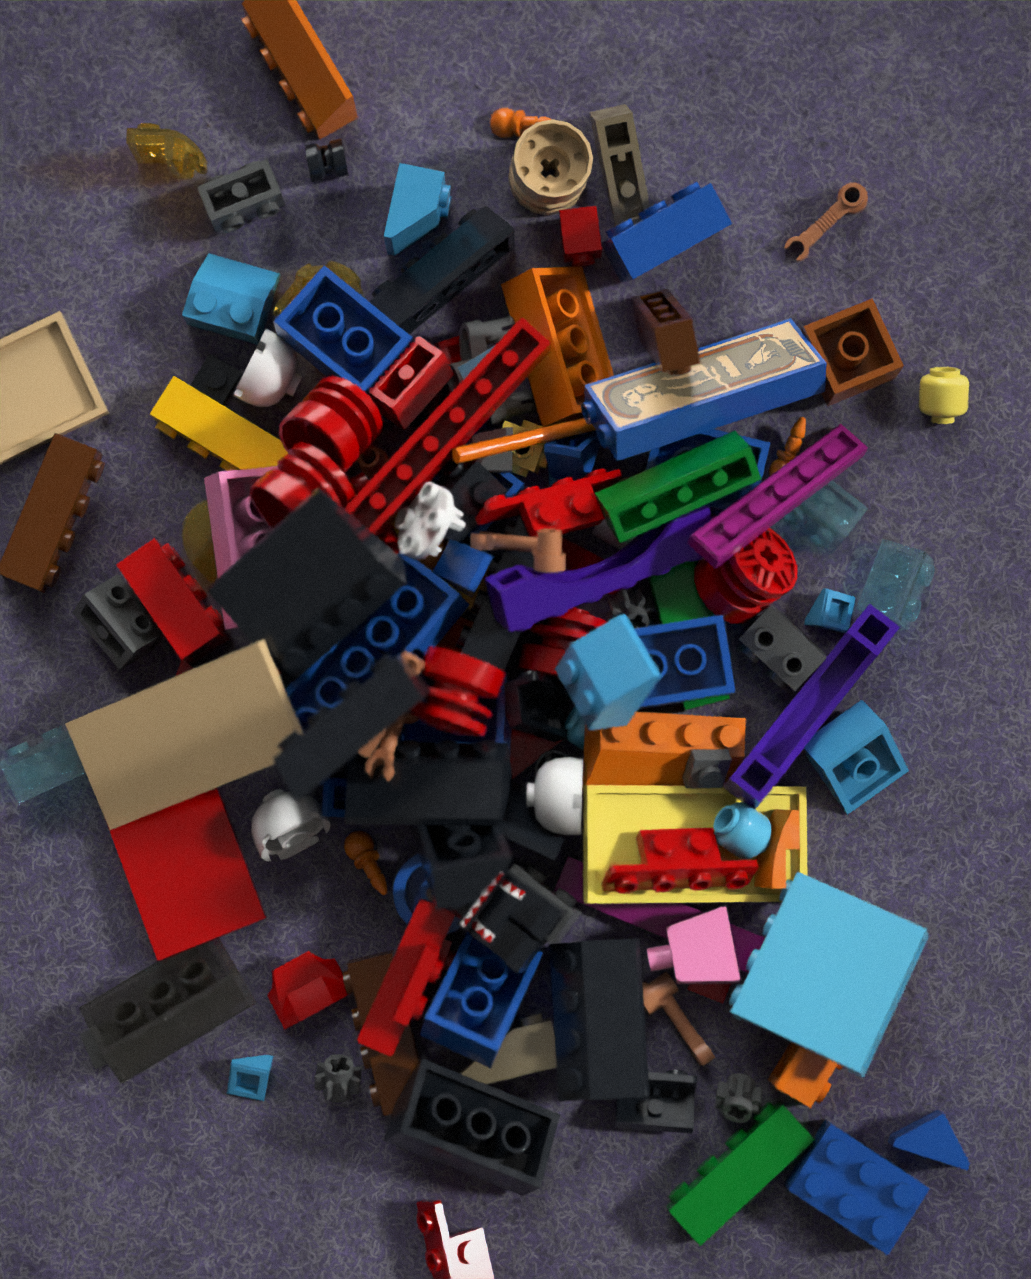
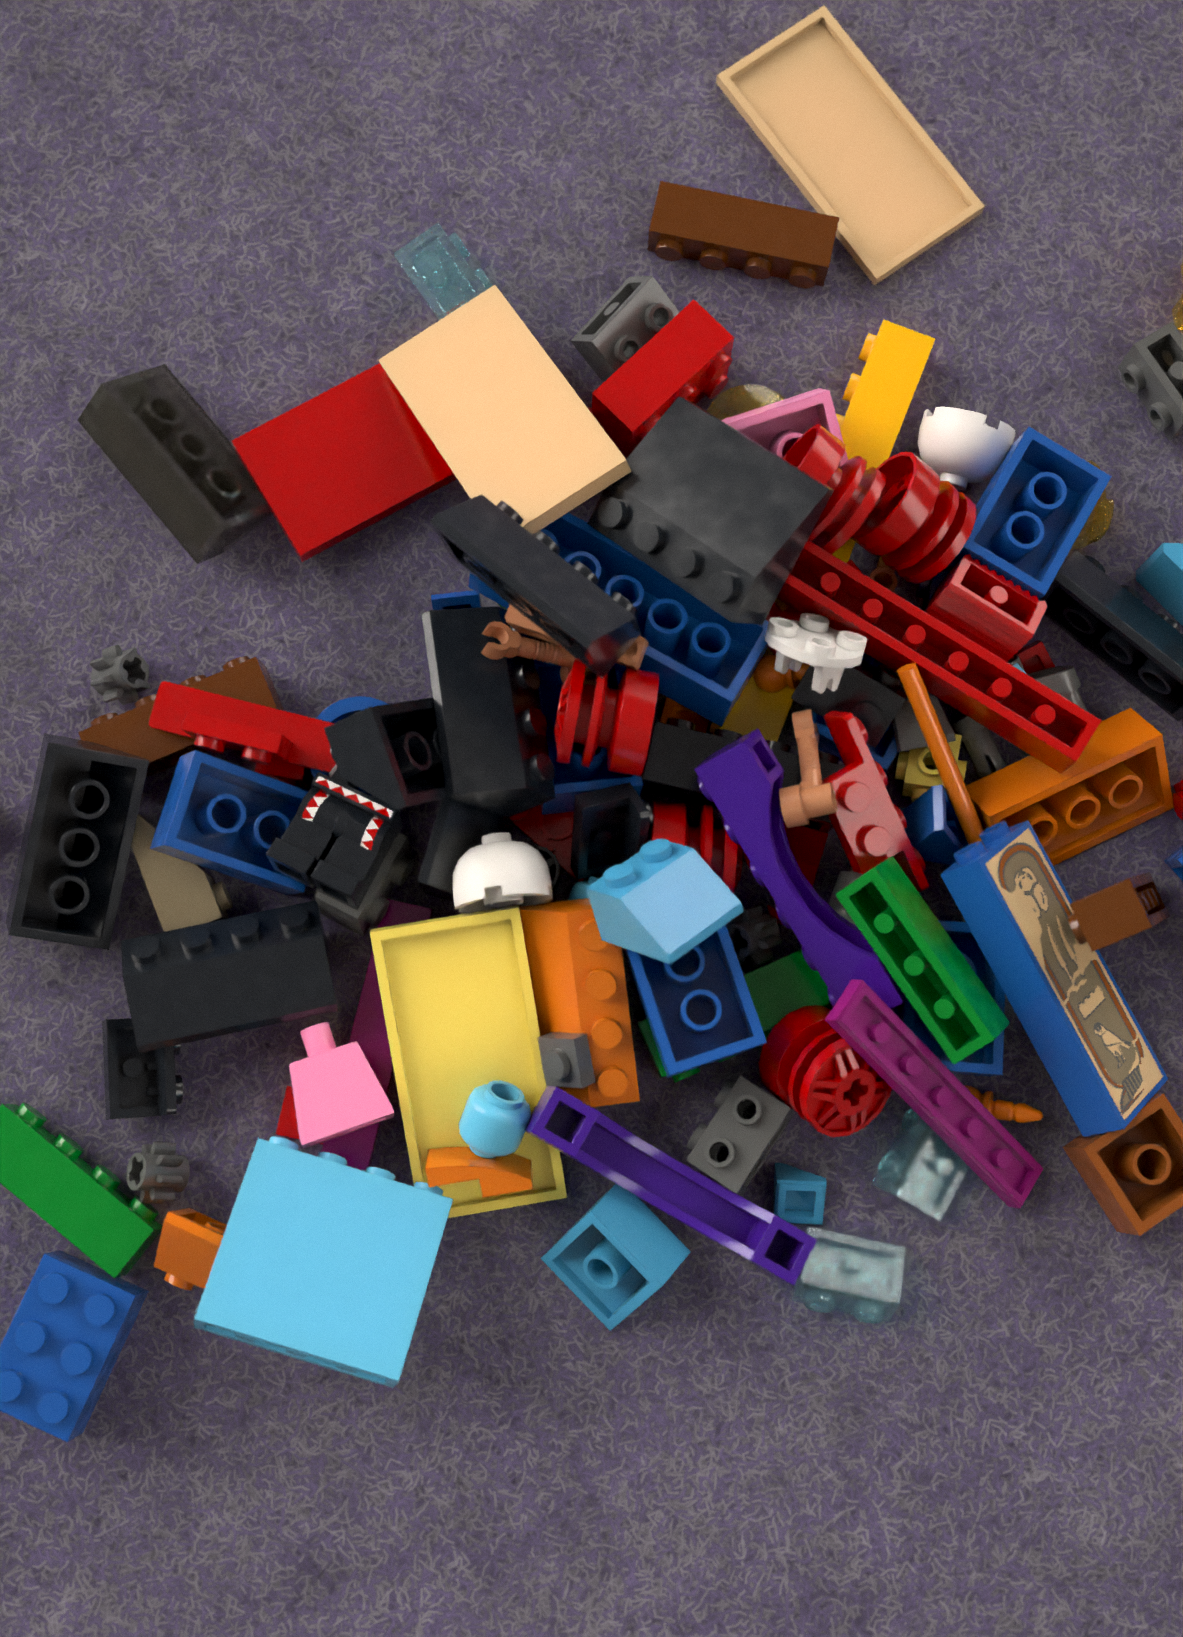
camera: 80 degrees right, 5 degrees down
(216, 379) = (939, 390): black plate -> none
(230, 298) = (1043, 388): dark azure slope -> none
(251, 1073) = (116, 576): dark azure slope -> none
(287, 825) = (412, 555): white cylinder -> none
(305, 987) = (225, 619): red slope -> none
(360, 848) = (404, 658): orange bar -> none
(462, 567) = (766, 706): blue slope -> none
(660, 994) = (275, 1052): nougat brick -> none
(678, 861) = (442, 1042): red bracket -> none
(931, 1138) = (135, 1434): blue slope -> none
(944, 394) = (1110, 1299): light yellow head -> none

